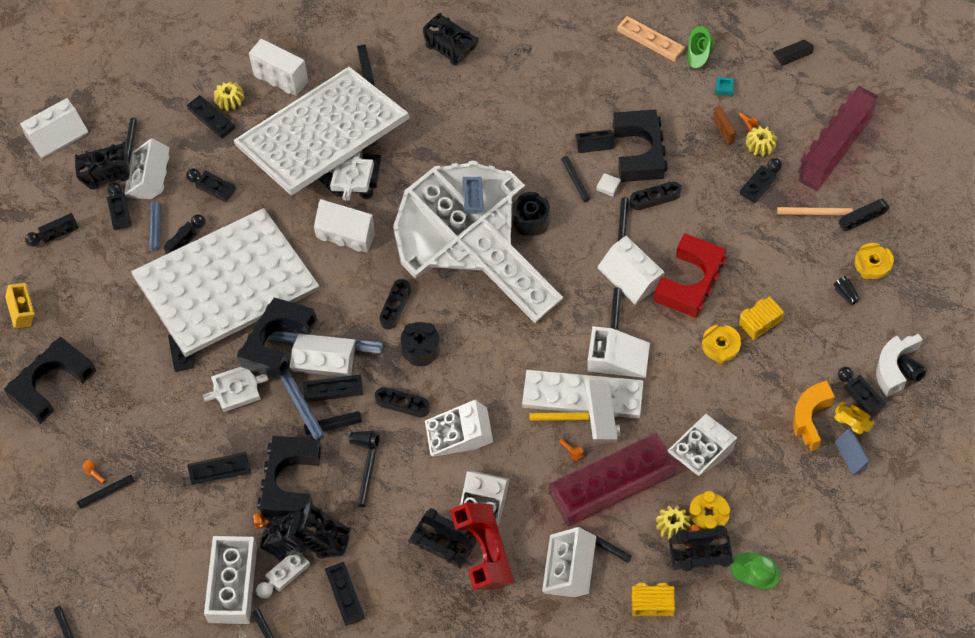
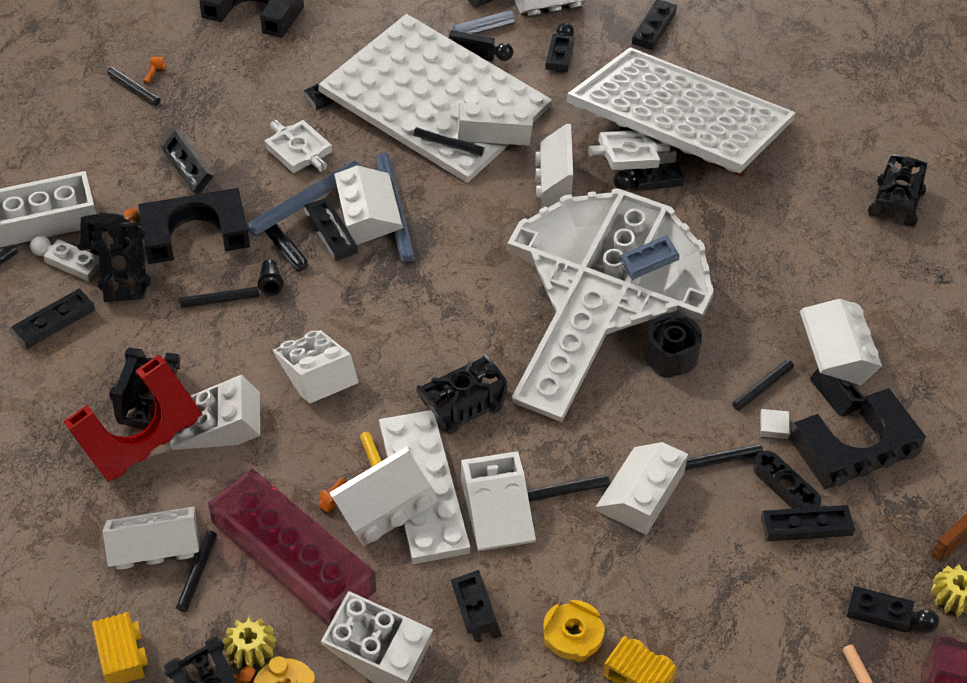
camera: 65 degrees right, 10 degrees down
(228, 95) = (689, 26): light yellow gear -> none
(277, 316) = (344, 139): black arch -> none
(278, 67) = (747, 48): white brick -> none
(280, 248) = (494, 124): none -> white slope
(287, 283) = (449, 141): none -> black bar
(365, 63) = (806, 127): black beam -> none
(386, 403) = (343, 307): black beam -> none
(394, 296) = (460, 260): black beam -> none
(420, 343) = (424, 288): black brick -> none
(512, 349) = (470, 395): none -> black piece
(565, 121) = (841, 340): none -> white slope
(689, 196) = (807, 523): none -> black plate
(690, 387) = (475, 605): none -> black hinge
(691, 298) = (634, 573): red arch -> none

